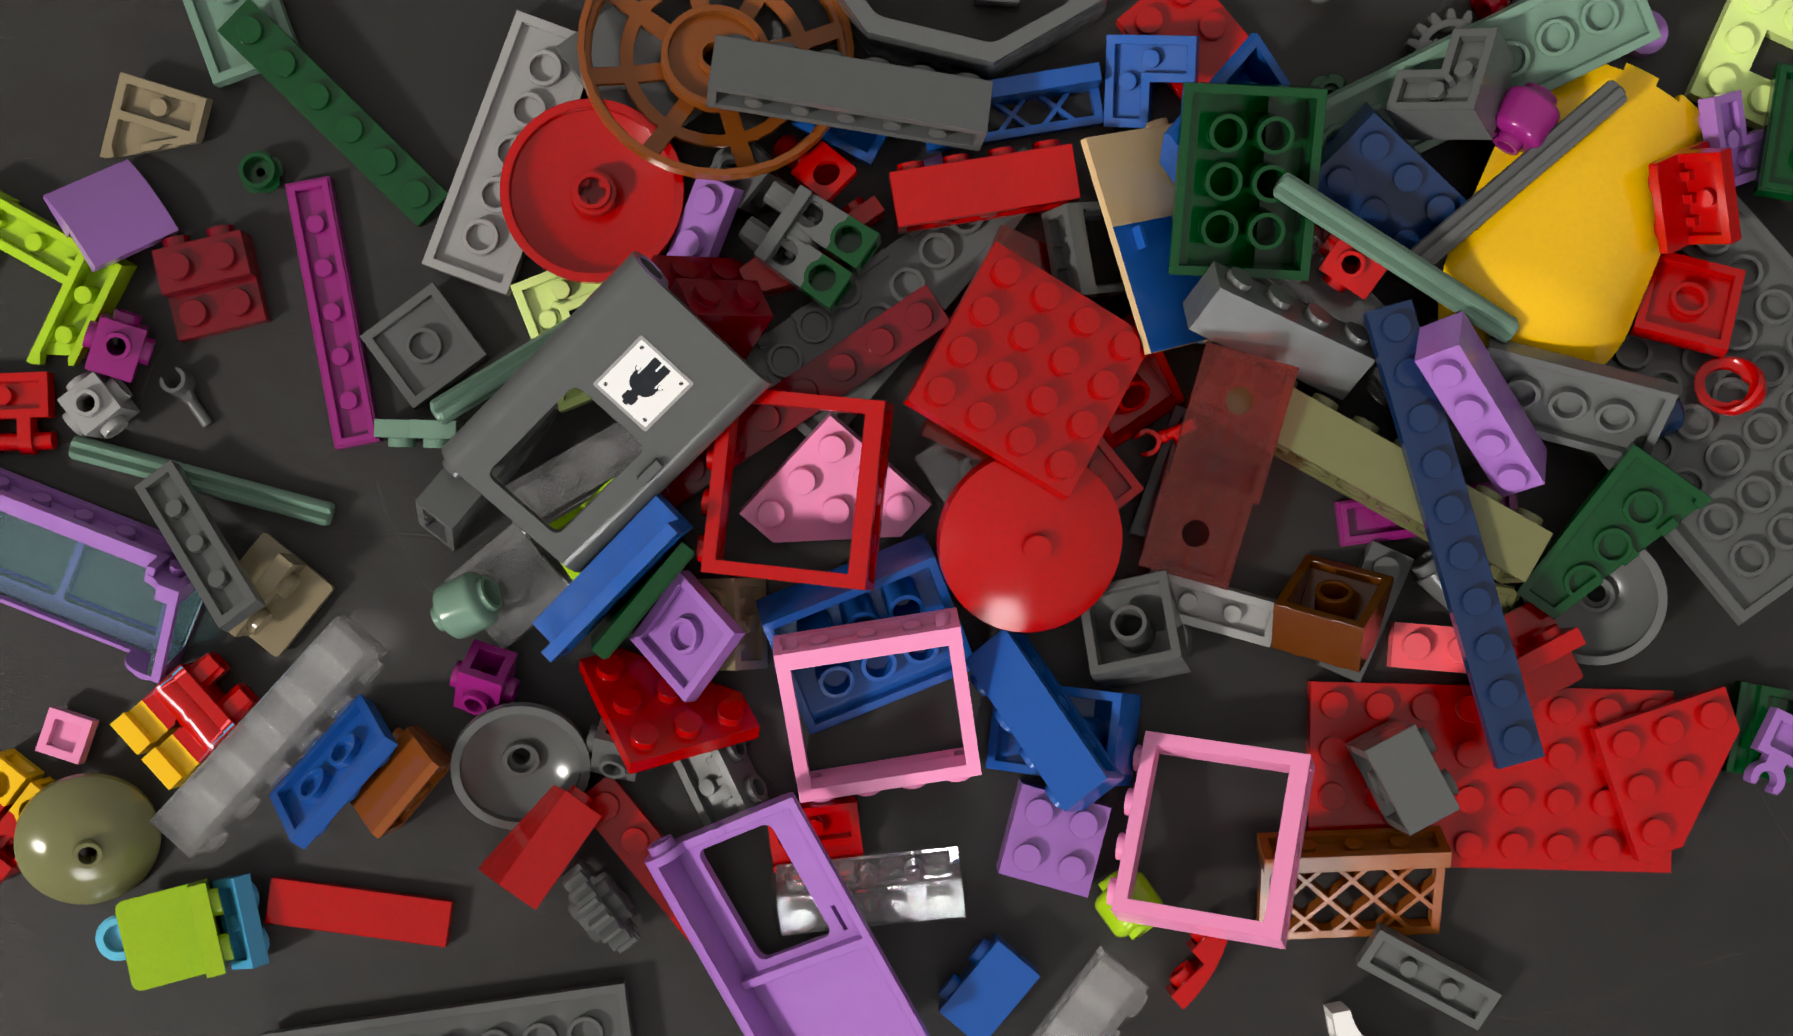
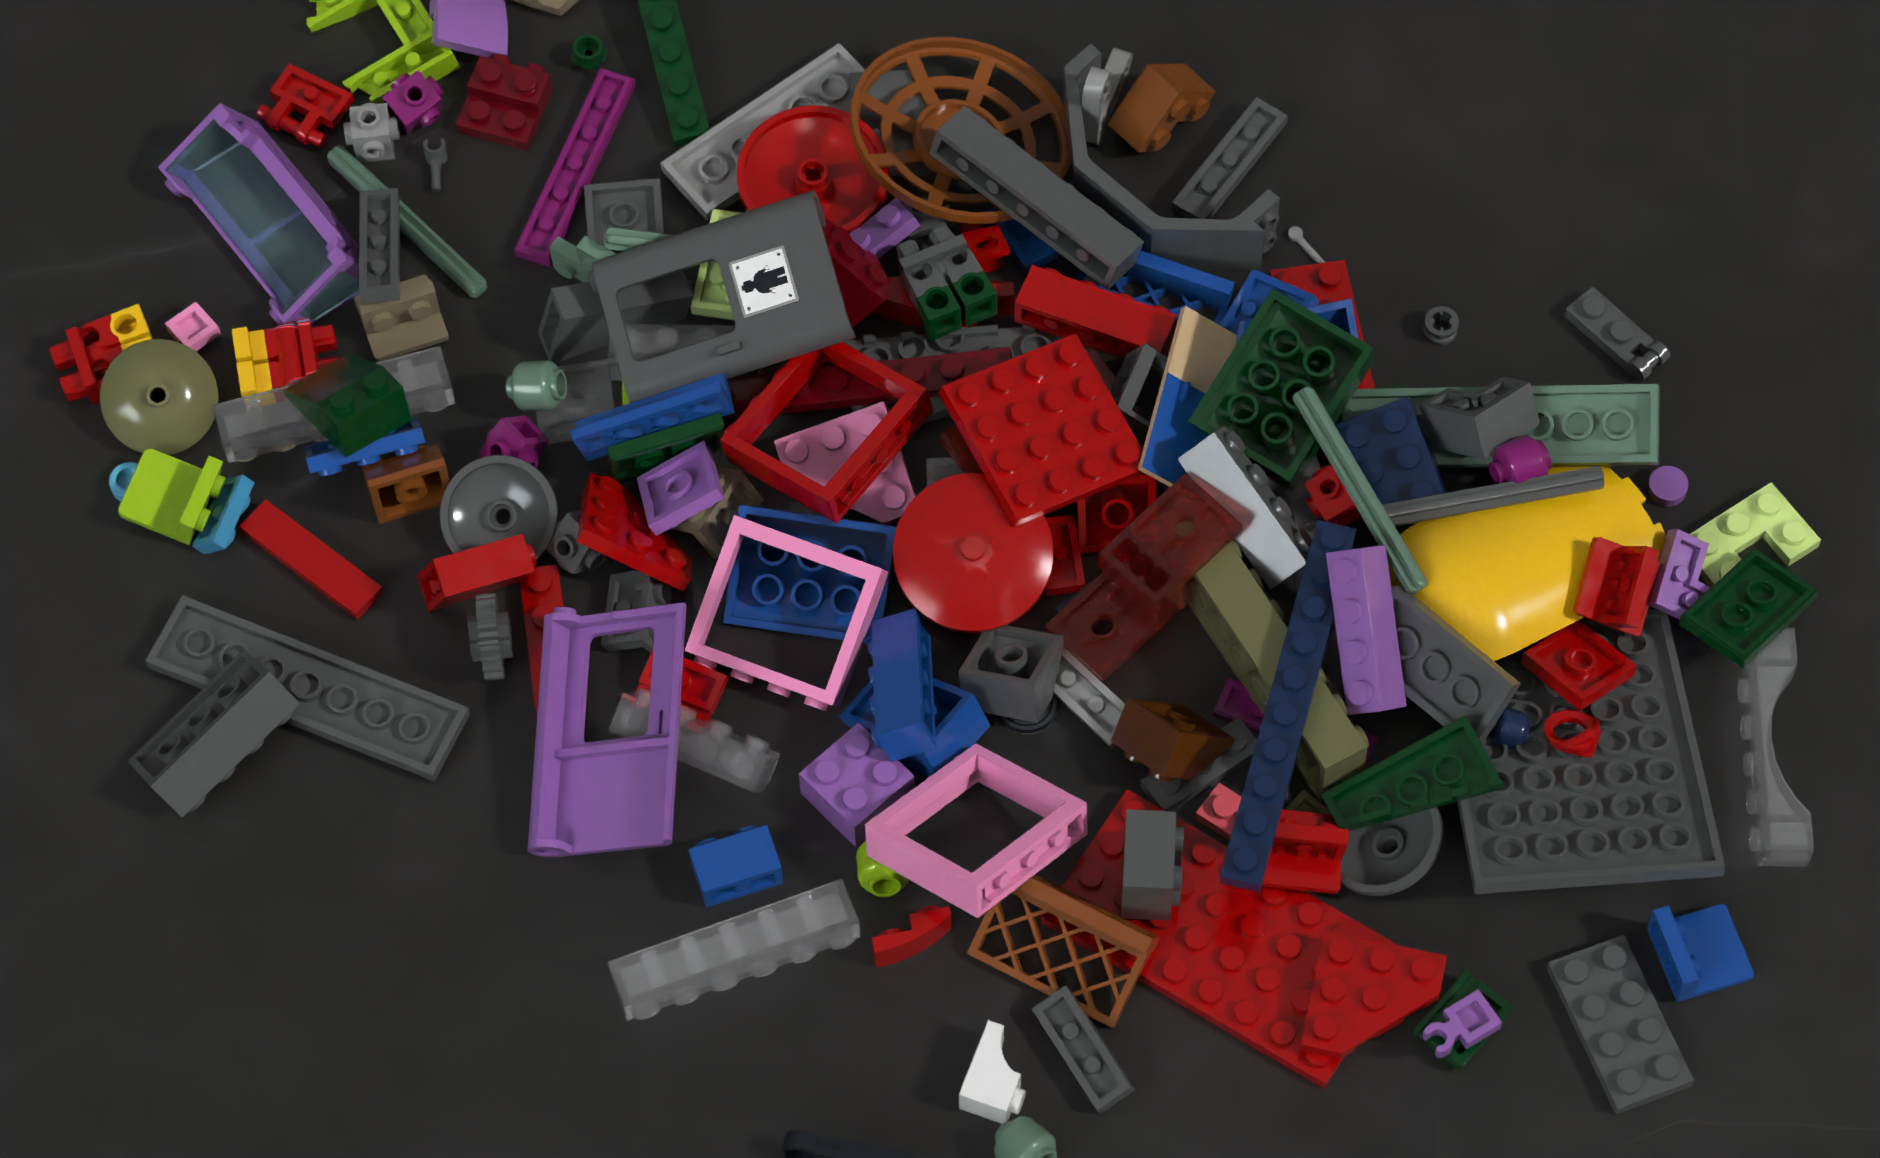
camera: 35 degrees right, 25 degrees down
(290, 752) = (351, 402): none -> dark green slope

